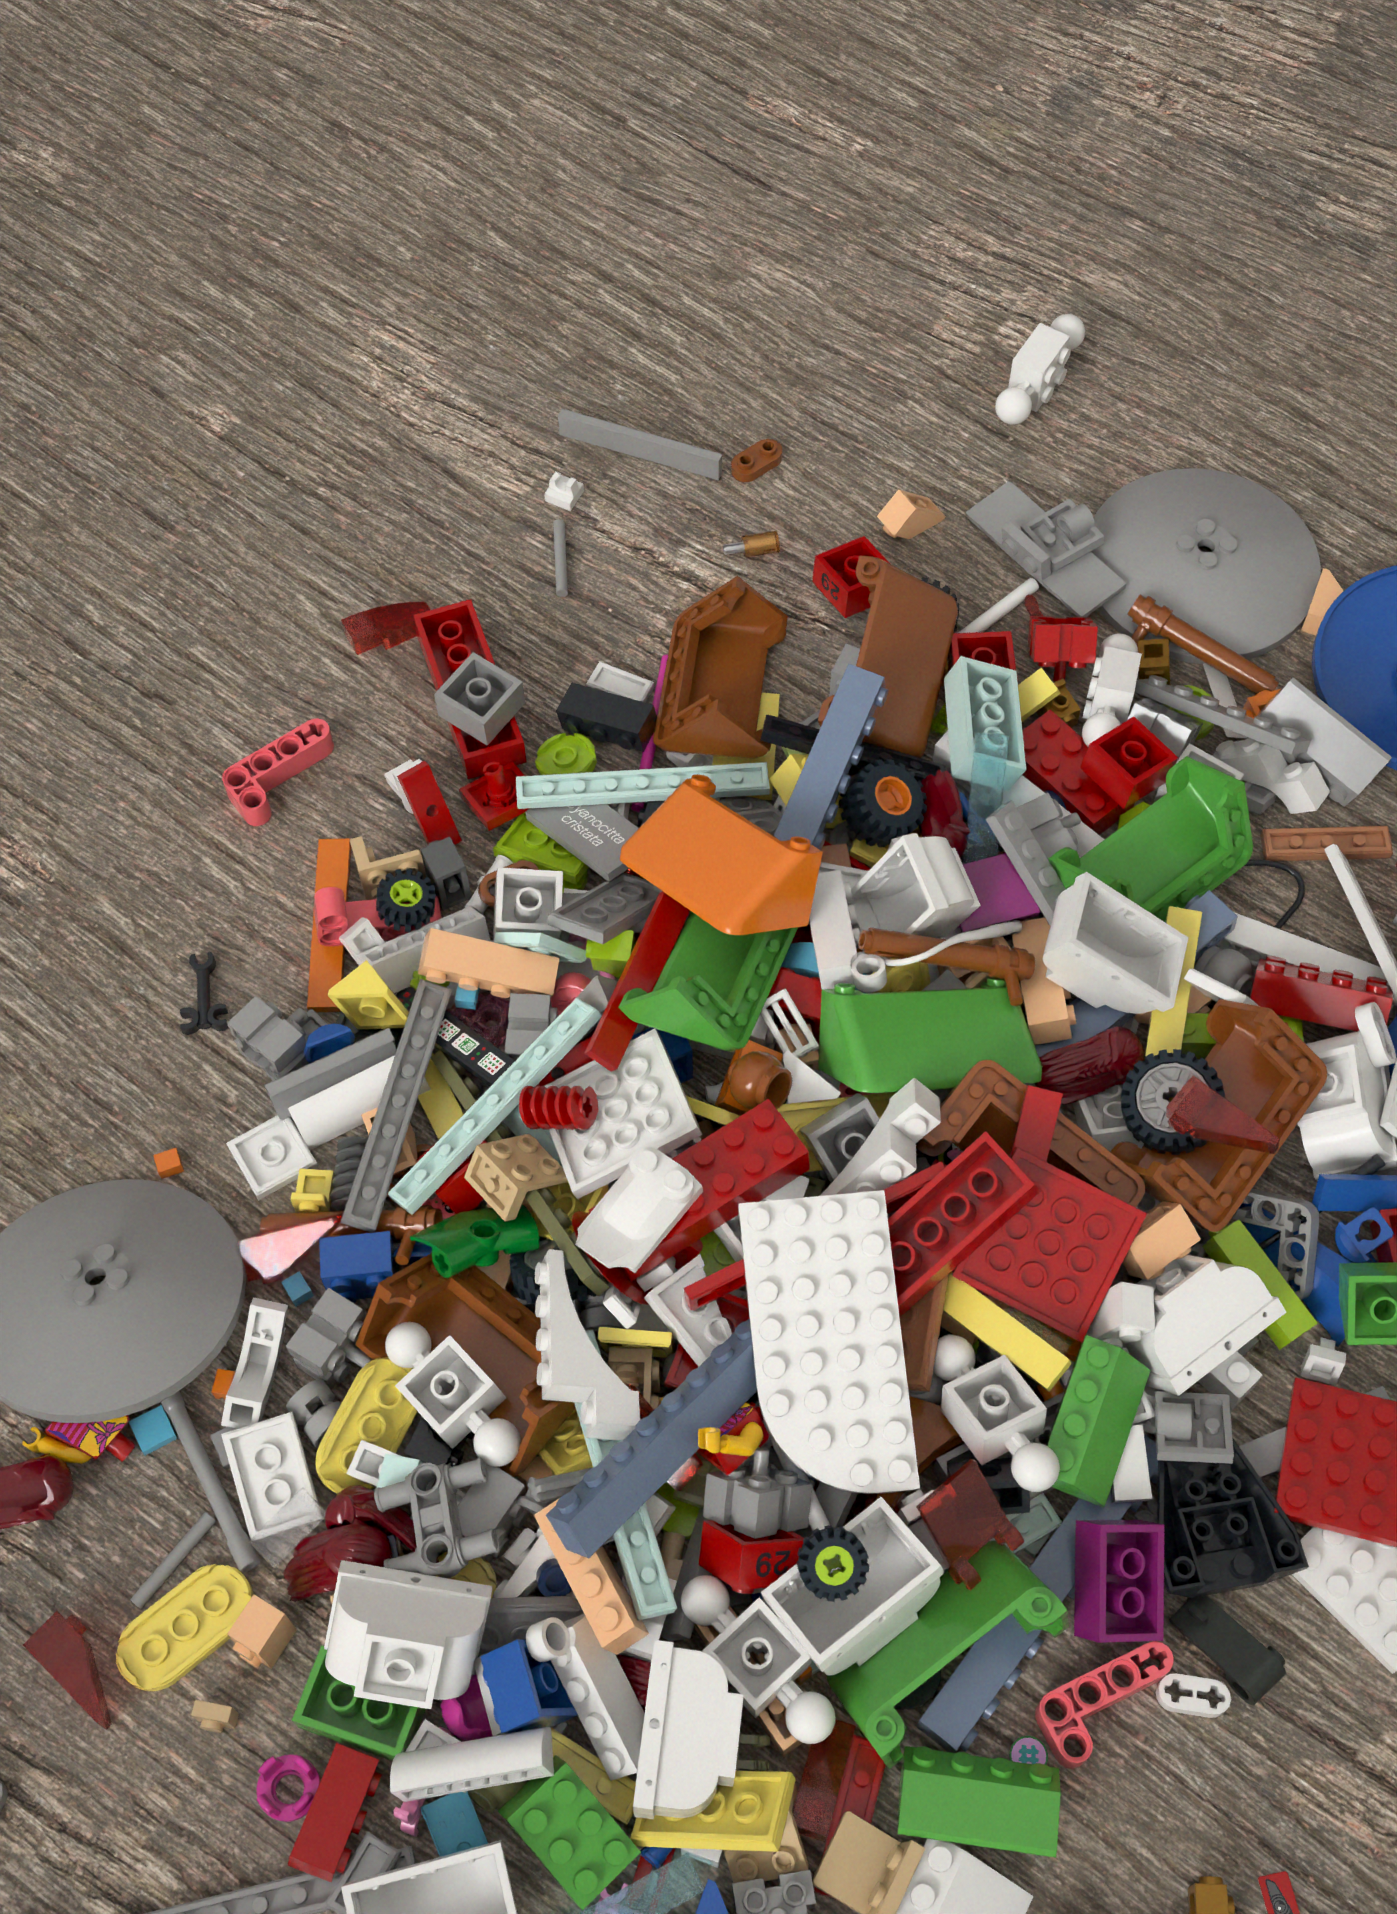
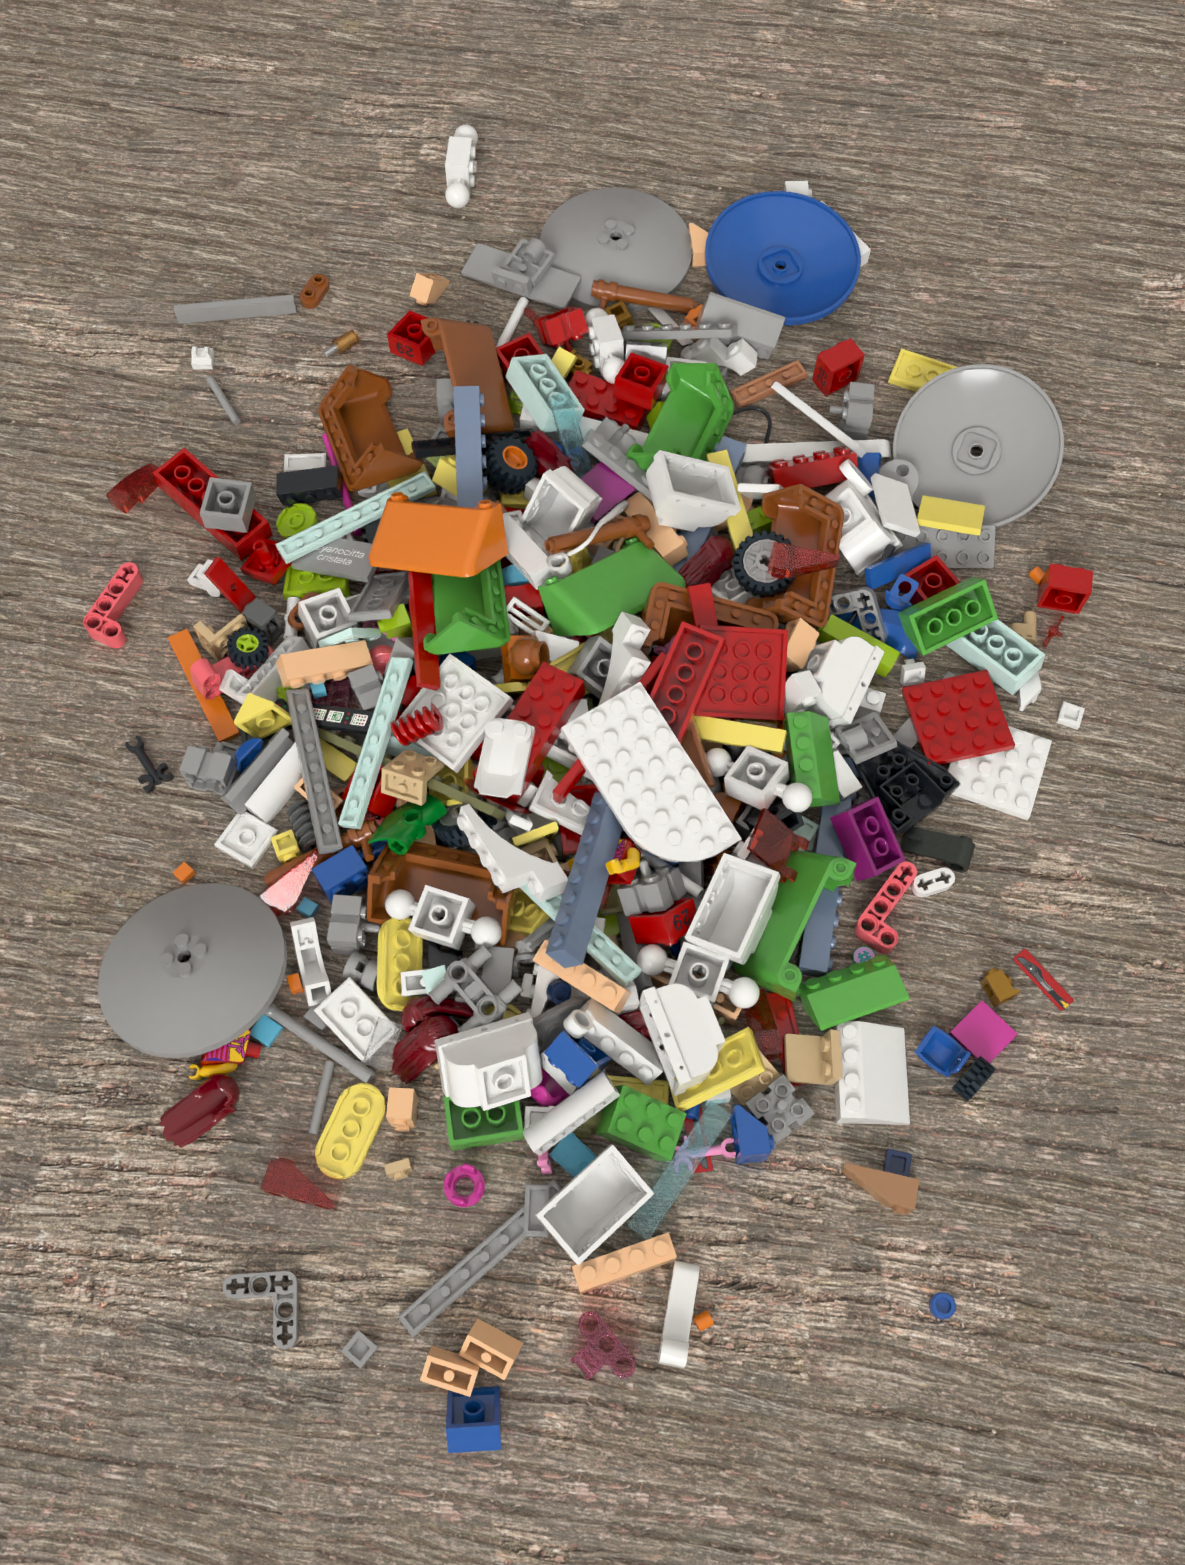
camera: 30 degrees left, 5 degrees up
(335, 1813) = (501, 1183): red brick -> none
(830, 1546) = (709, 900): black wheel -> none

